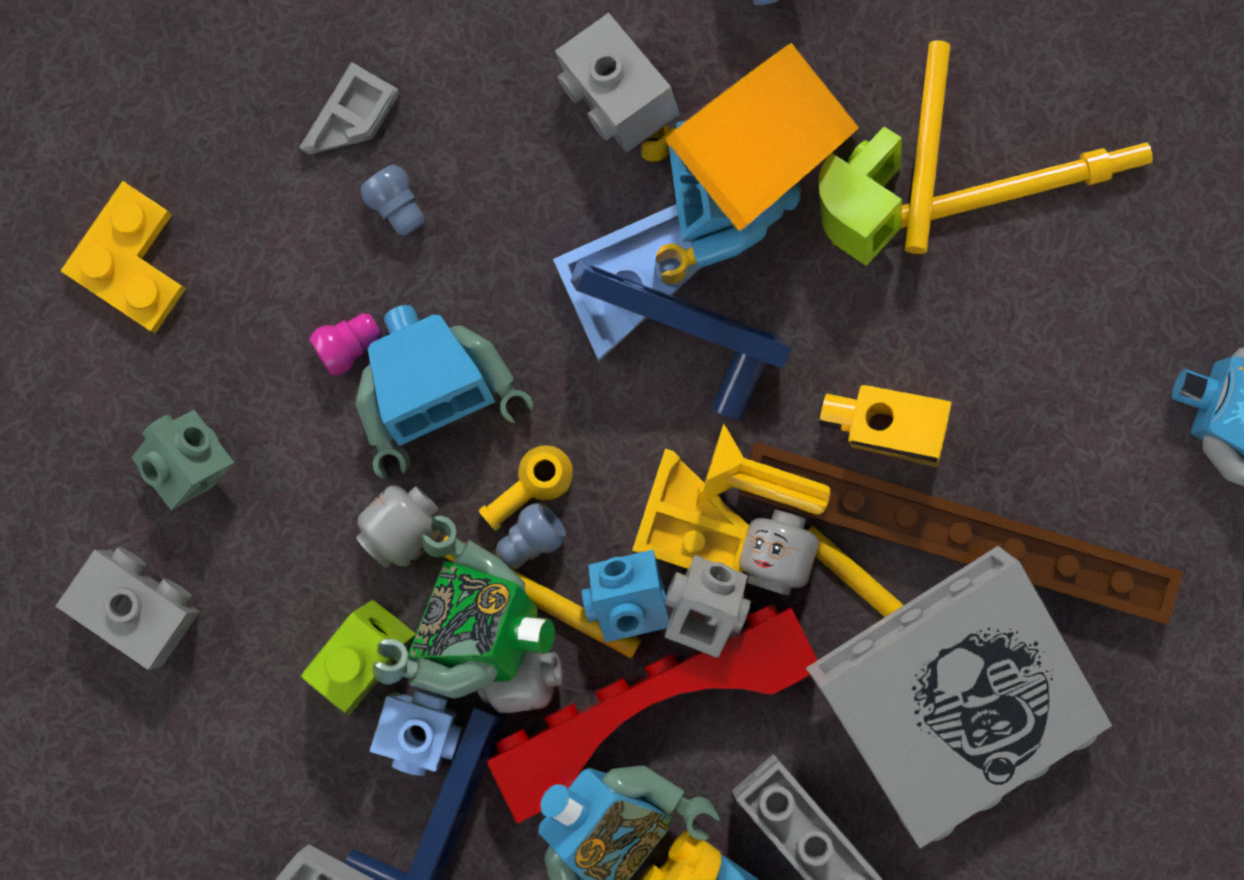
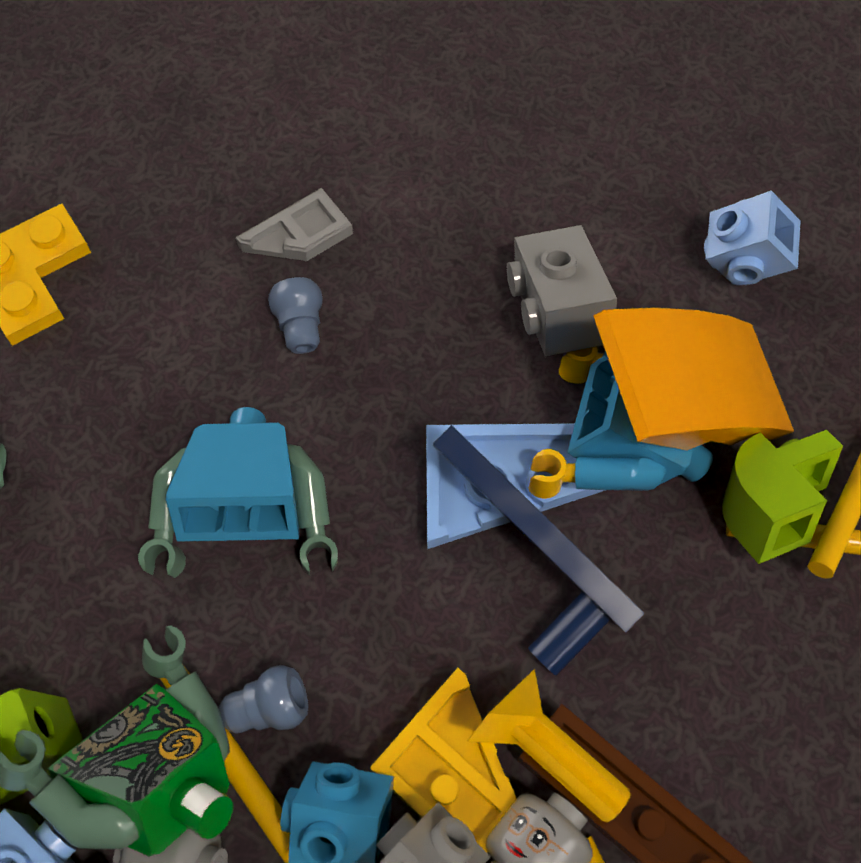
camera: 20 degrees right, 20 degrees down
(344, 342) = (173, 421): dark pink piece -> none
(395, 525) = (123, 619): light grey head -> none
(529, 486) = (305, 657): yellow bar -> none
(916, 427) = (756, 766): yellow torso -> none

